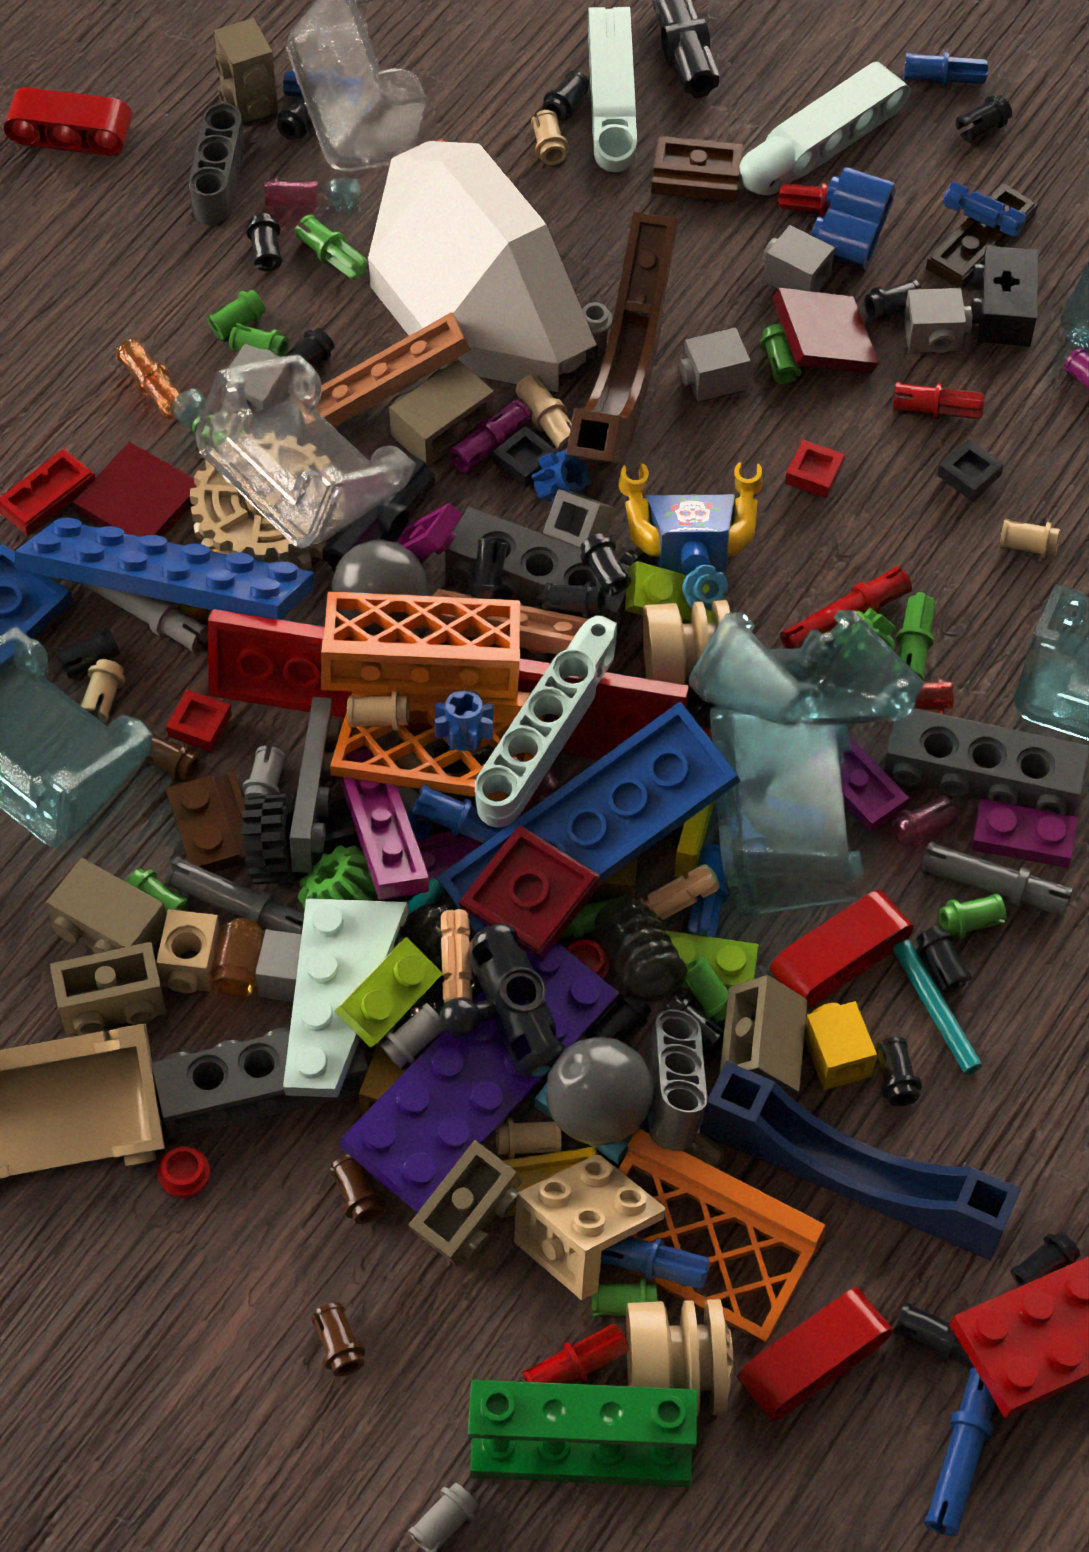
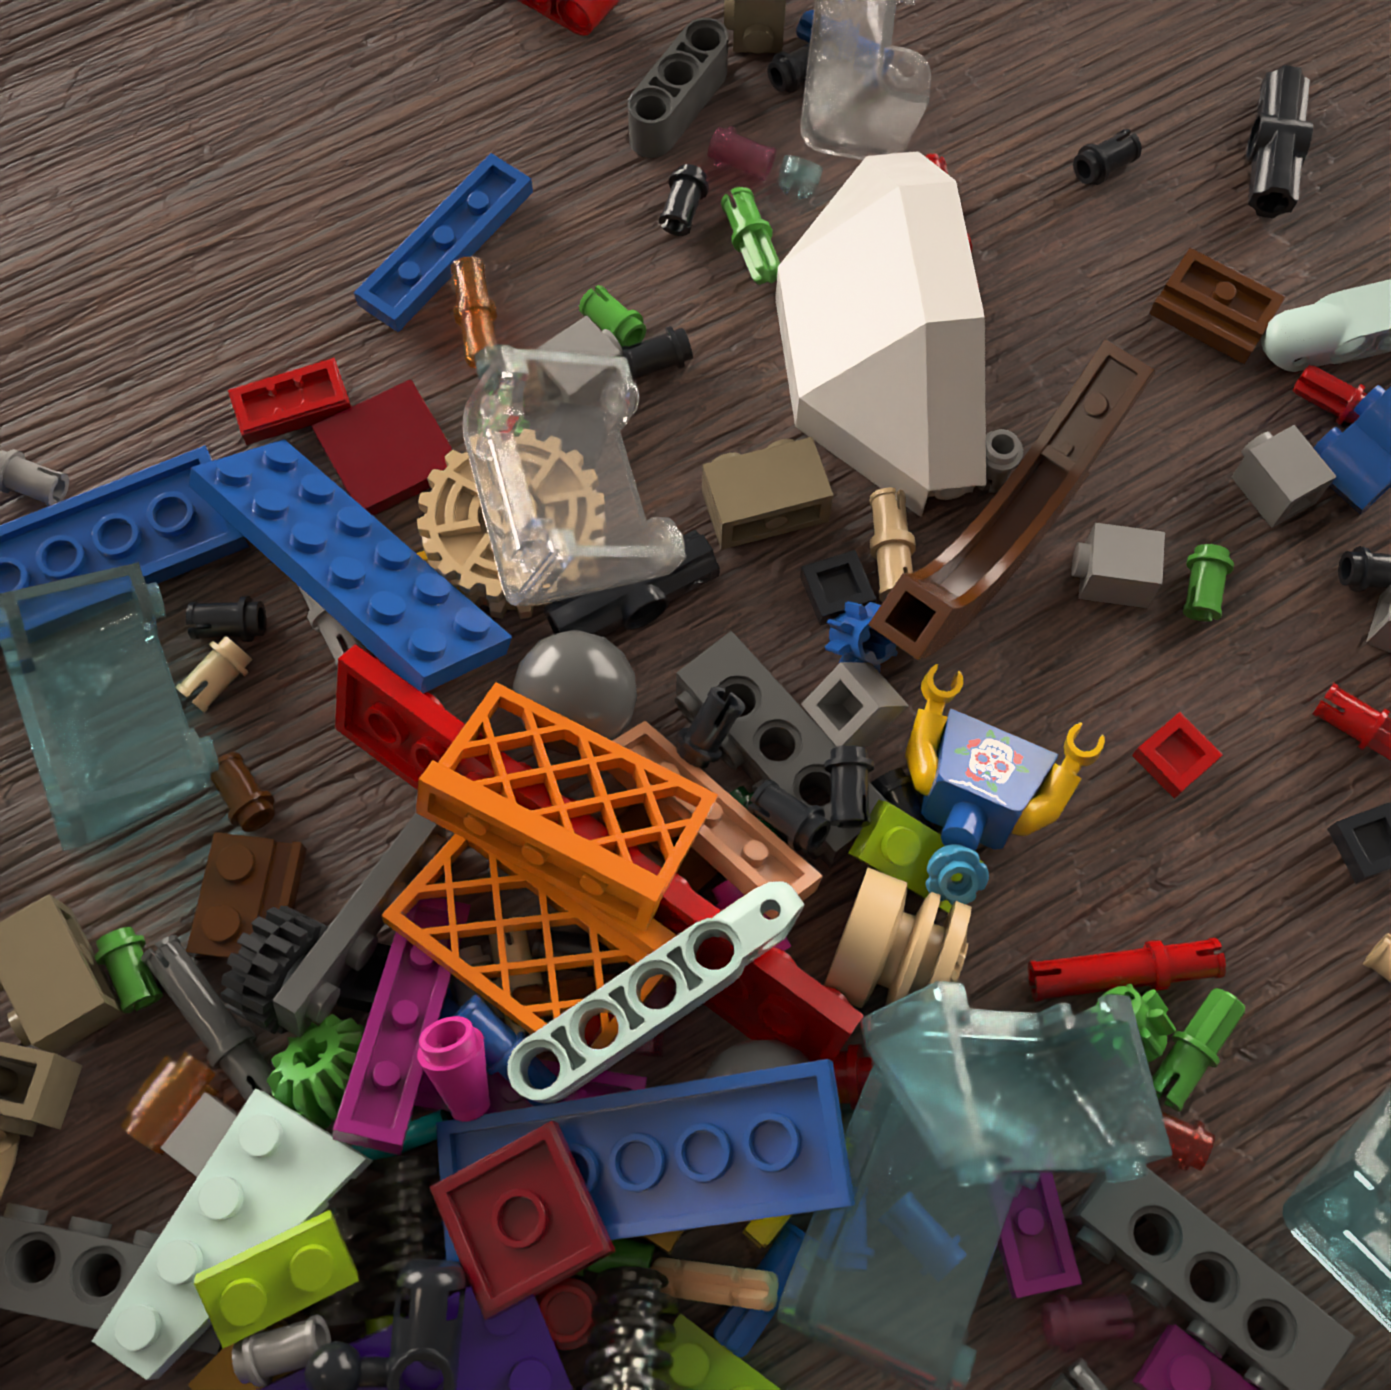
camera: 25 degrees right, 10 degrees up
(96, 338) = (449, 233): none -> blue plate
(185, 933) = (110, 1039): tan brick -> none
(199, 720) = (297, 762): red plate -> none
(242, 310) = (608, 272): bright green pin -> none
(265, 773) = (329, 872): light grey pin -> none
(379, 711) = (472, 870): tan pin -> none
(392, 370) = (730, 418): nougat plate -> none
(431, 532) = (663, 648): magenta plate -> none
(436, 826) = (456, 1065): none -> dark pink cone
(455, 956) = (379, 1278): light nougat axle -> none
(463, 720) = (559, 953): blue gear -> none
(489, 436) = (811, 543): magenta pin -> none
(550, 144) = (1061, 208): tan pin -> none
(612, 87) = (1164, 168): light aqua piece -> none
(825, 330) = (1274, 578): tile -> none

